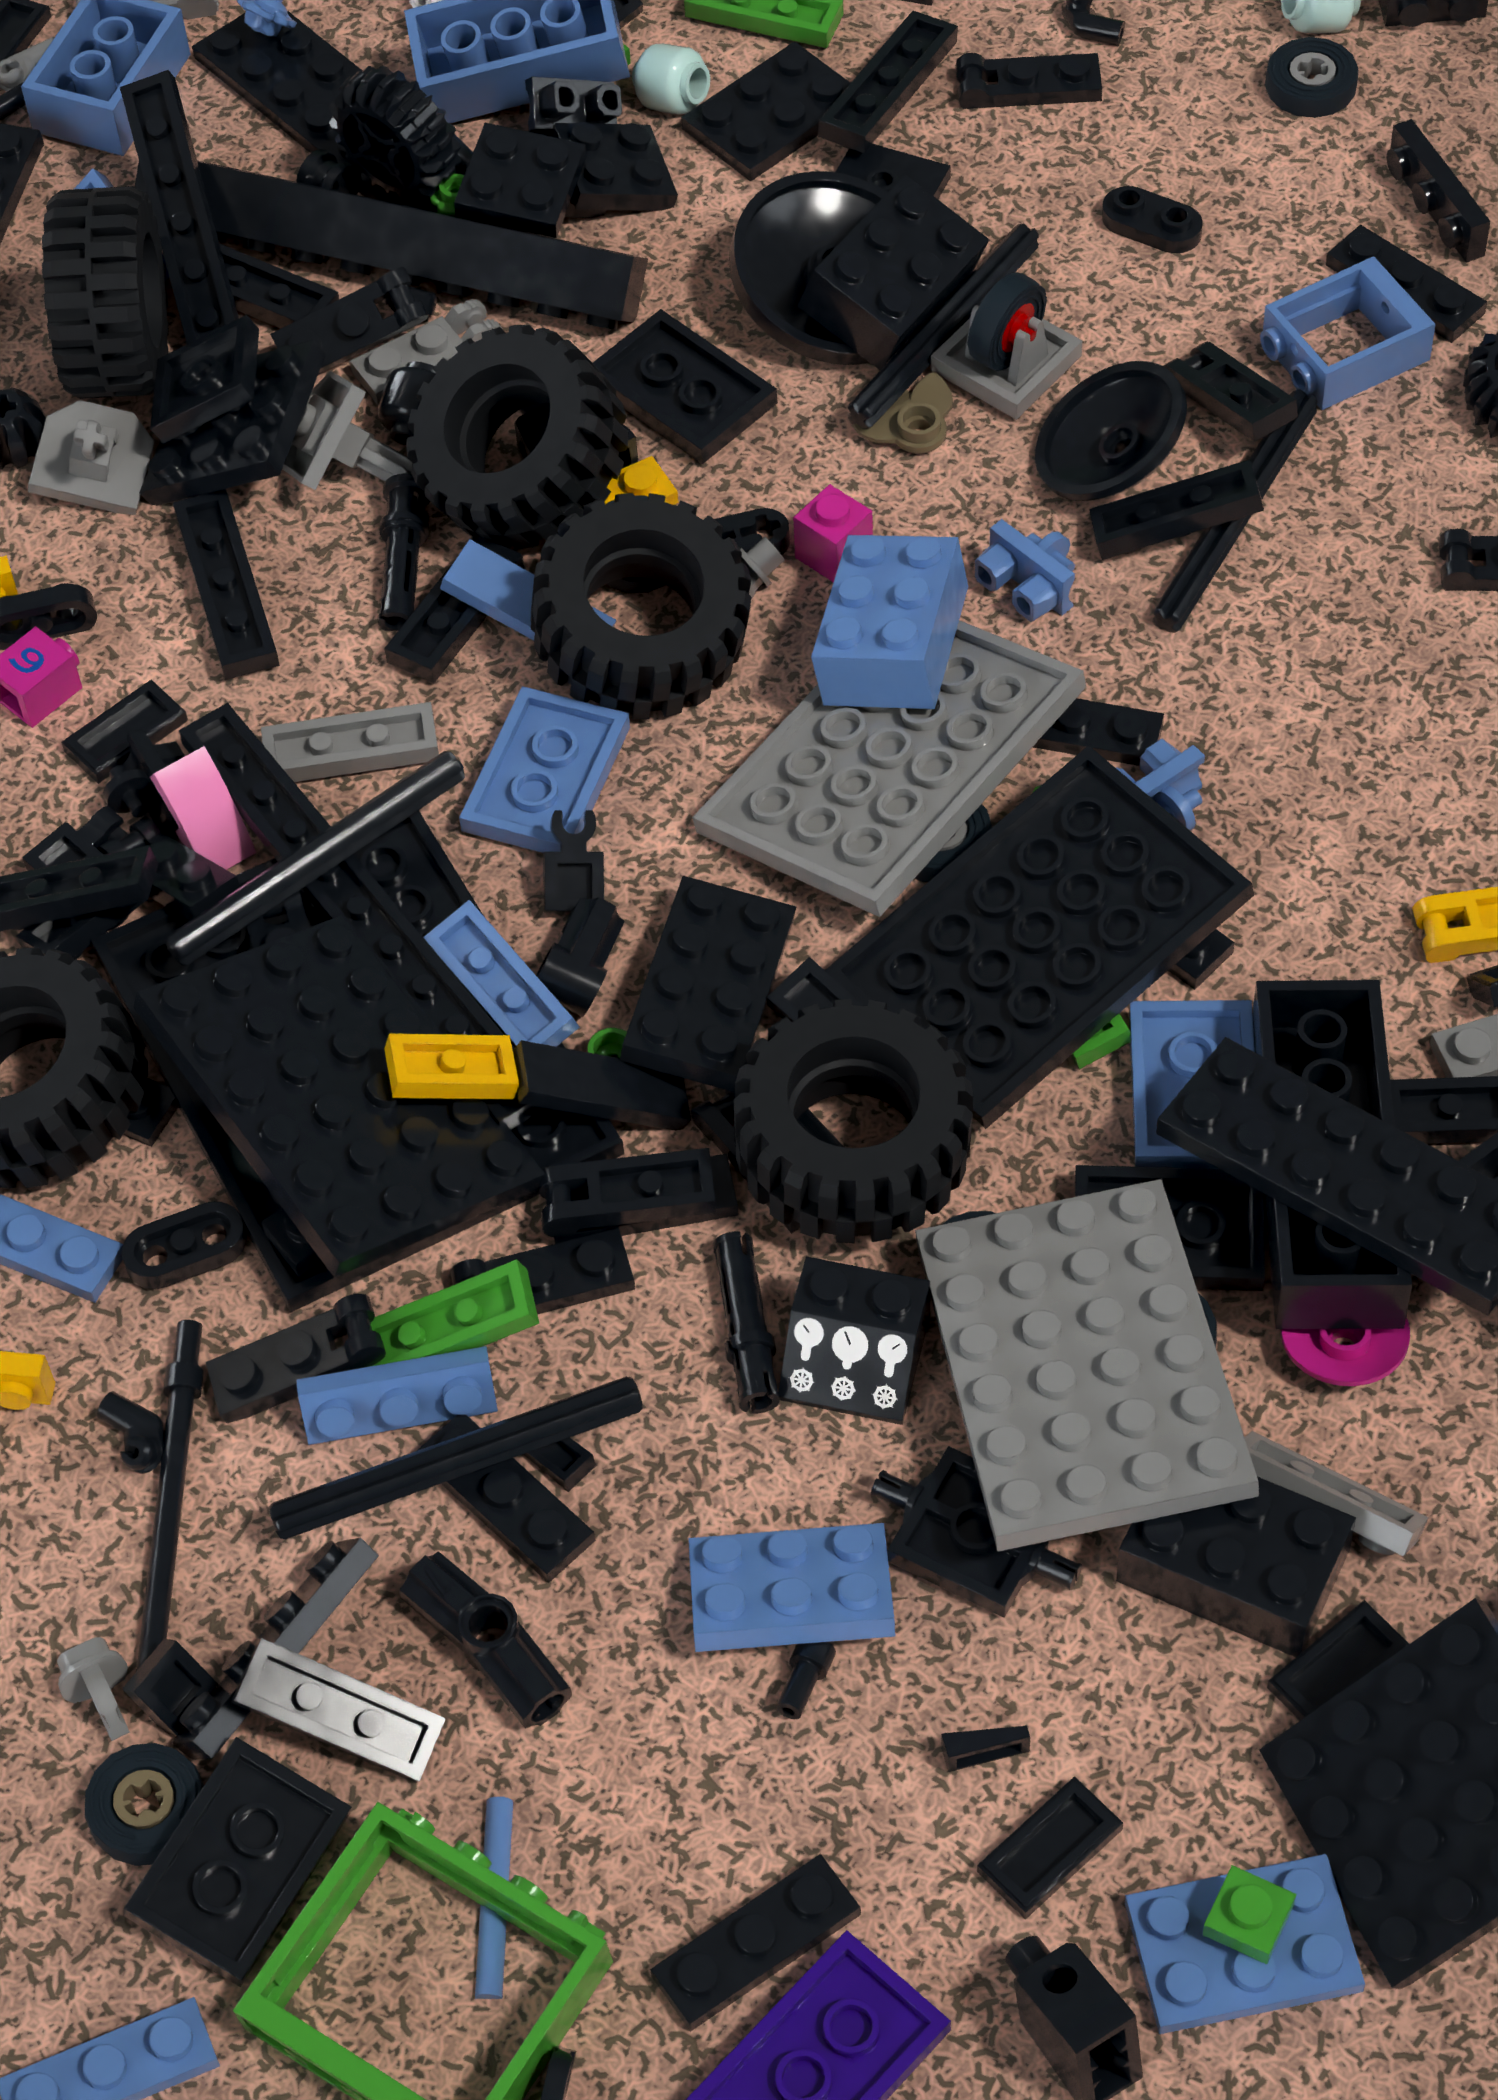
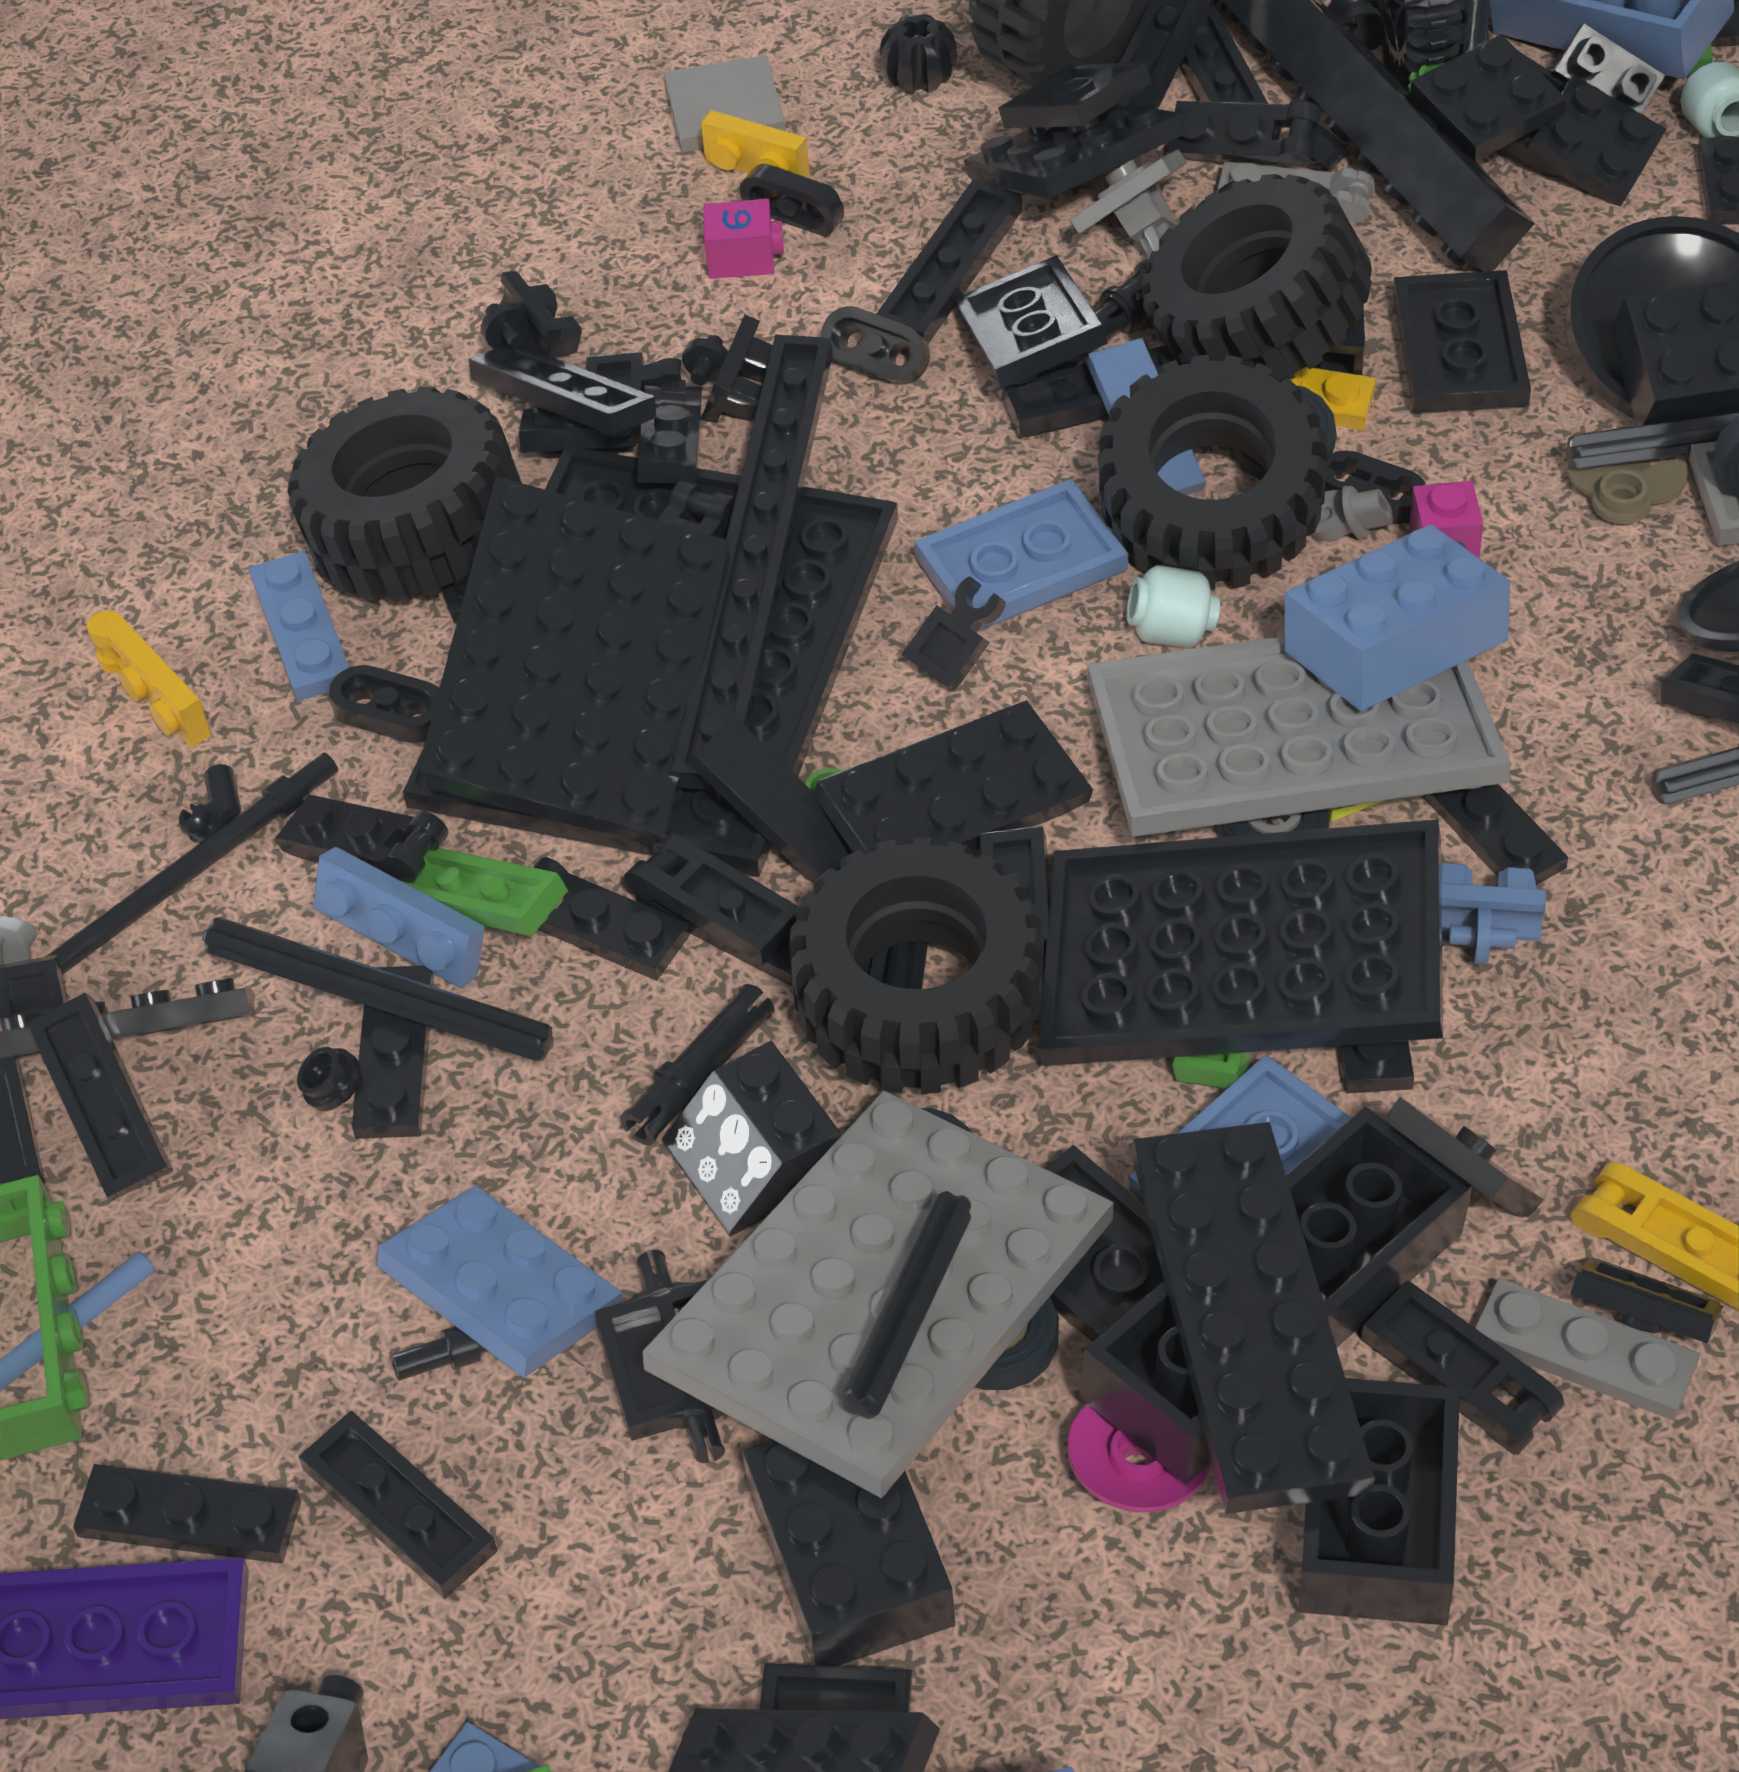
camera: 45 degrees right, 5 degrees down
(92, 457) = (951, 111): light grey piece -> none
(104, 740) = (776, 314): black tile -> none
(204, 809) = (729, 404): bright pink slope -> none
(245, 683) = (879, 345): none -> black plate
(314, 858) = (758, 486): black axle -> none
(353, 742) = (905, 437): light grey plate -> none
(358, 584) = (1031, 322): none -> black plate
(451, 1066) = (663, 696): yellow plate -> none
(471, 1548) = (328, 1077): none -> black plate
(499, 979) = (793, 673): medium blue plate -> none
(510, 1663) = (254, 1163): black piece -> none
(563, 1462) = (461, 1061): black piece -> none
(576, 963) = (871, 710): black piece -> none
(704, 731) = (1172, 607): none -> light aqua head
(902, 1799) = (398, 1504): none -> black plate
(983, 1746) = (500, 1518): black piece -> none
(1034, 564) = (1590, 666): medium blue hips -> none
(1050, 1847) = (463, 1638): black tile -> none
(1141, 1352) = (906, 1305): none -> black axle
(1344, 963) = (1466, 1156): none -> black plate
(1380, 1521) = (977, 1561): light grey plate -> none

